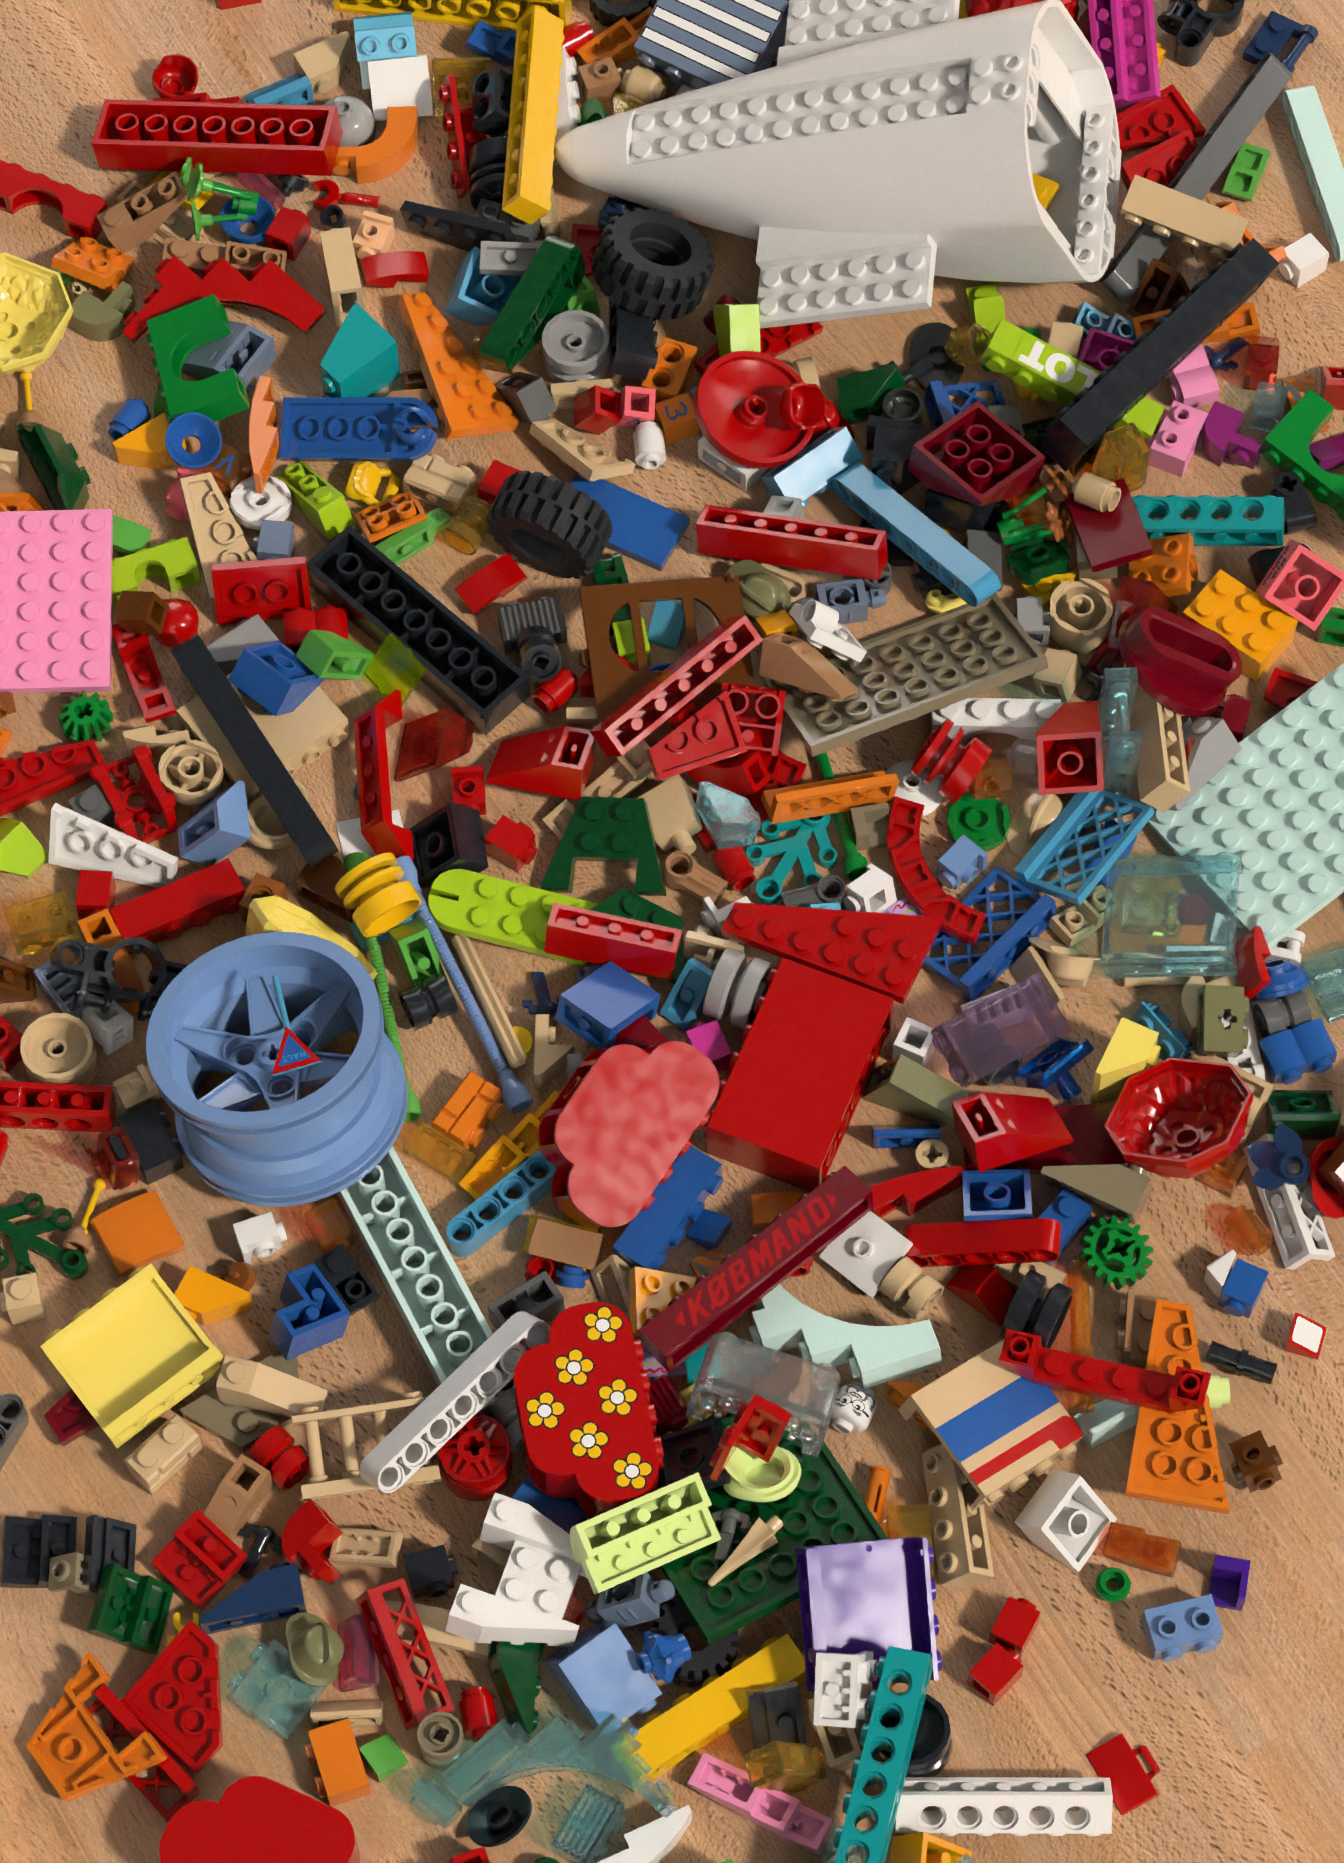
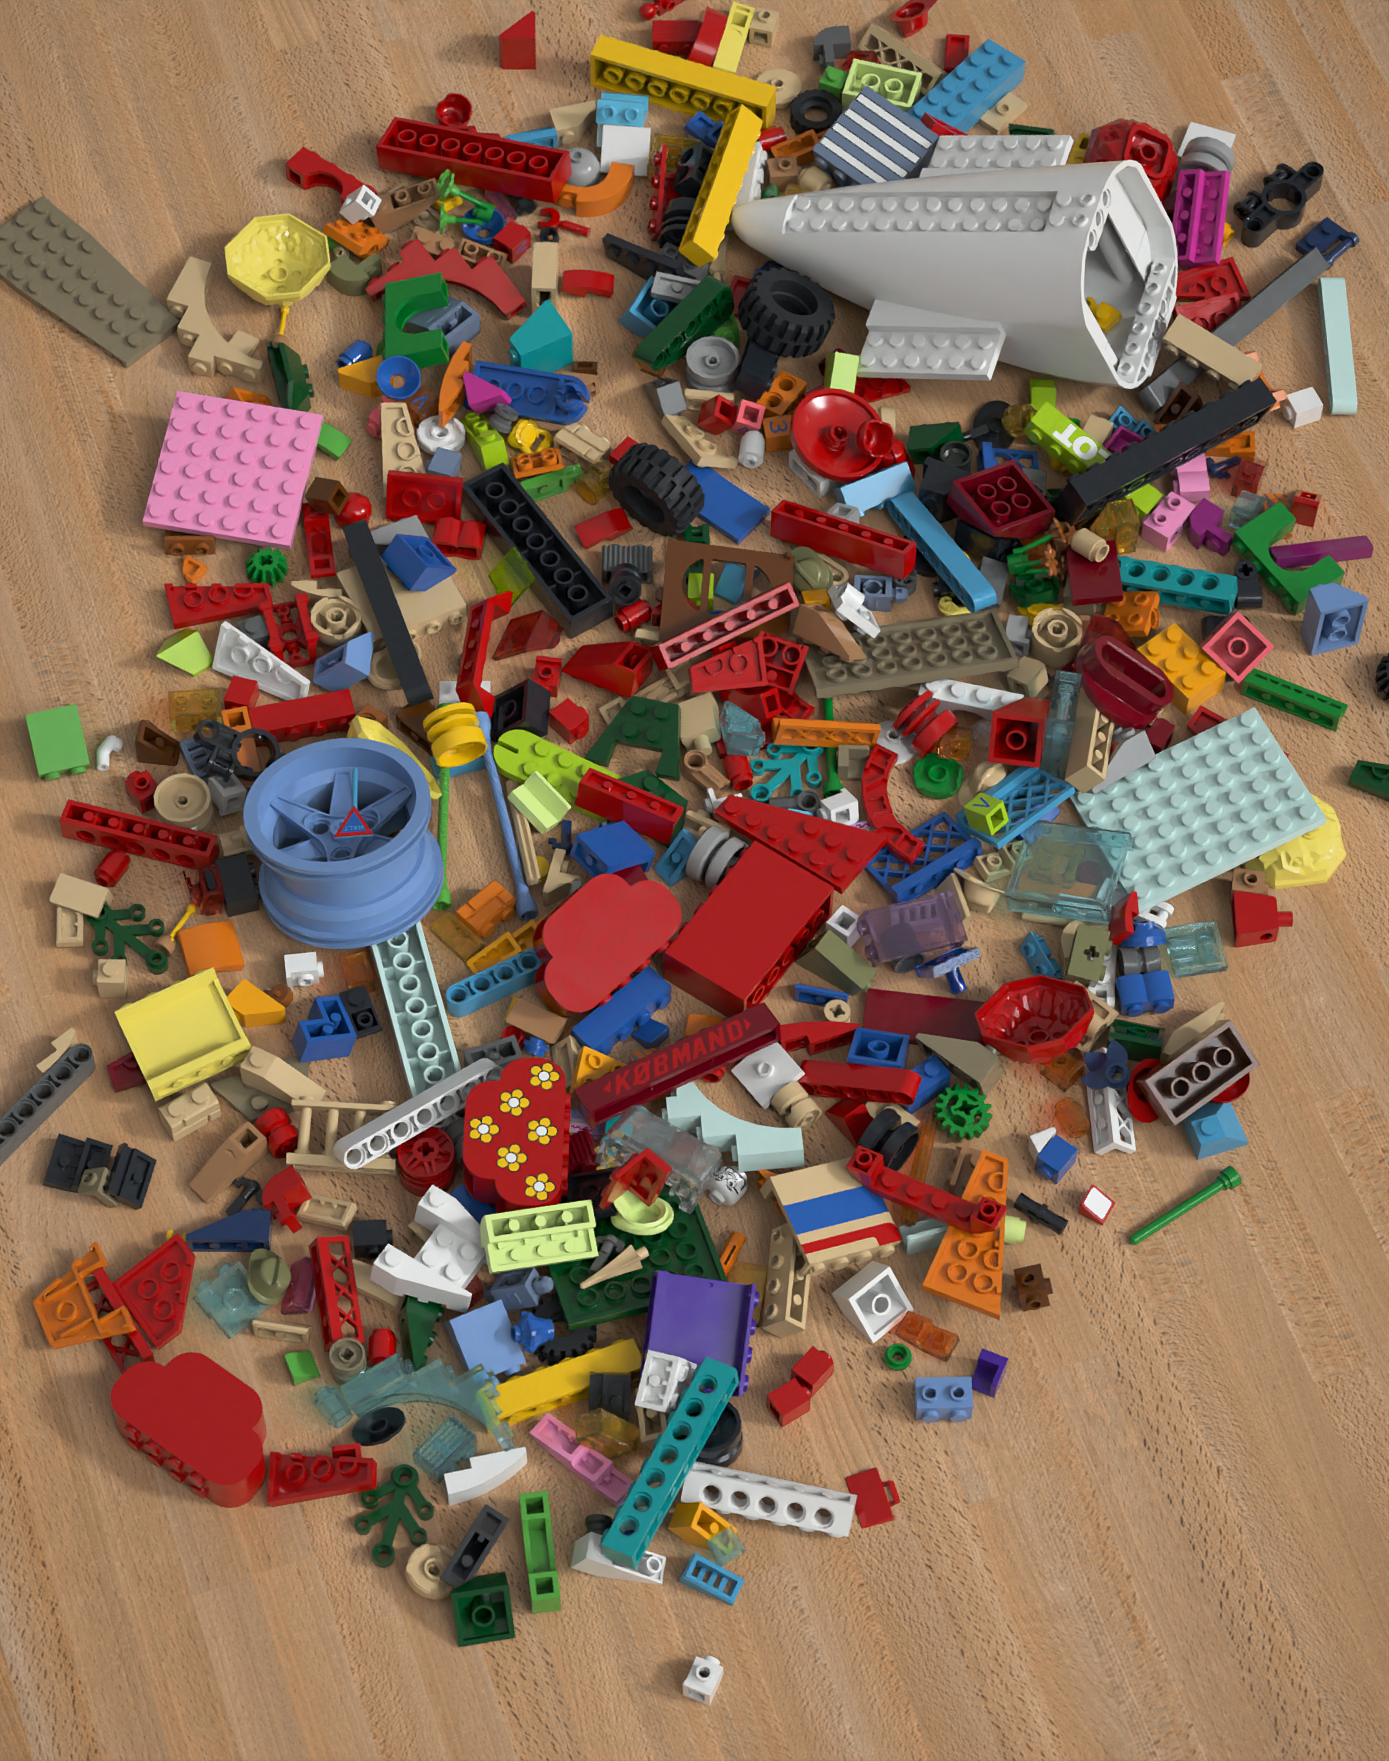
camera: 10 degrees right, 5 degrees down
(91, 224) = (360, 205): none -> white brick
(131, 1609) = (136, 1219): dark green slope -> none
(170, 561) = (358, 464): lime arch -> none
(199, 1560) = (197, 1194): red slope -> none
(303, 442) = (483, 395): none -> dark pink slope
(333, 656) = (467, 556): bright green slope -> none
(334, 466) = (503, 418): none -> dark grey wheel
(338, 1761) = (266, 1362): orange brick -> none
(373, 235) = (578, 255): light nougat brick -> none
(416, 952) = (477, 791): bright green slope -> none
(428, 1001) = (475, 823): black wheel -> none
(453, 377) = (611, 369): orange wing -> none
(501, 958) = (539, 802): none -> yellowish green panel
(711, 1042) = (687, 897): dark pink brick -> none
(961, 863) = (916, 803): medium blue brick -> none
(1007, 1128) = (899, 1001): red slope -> none
(1054, 863) = (986, 813): none -> lime brick
(1129, 1052) = (1006, 964): light yellow slope -> none
(1246, 172) = (1275, 334): bright green slope -> none

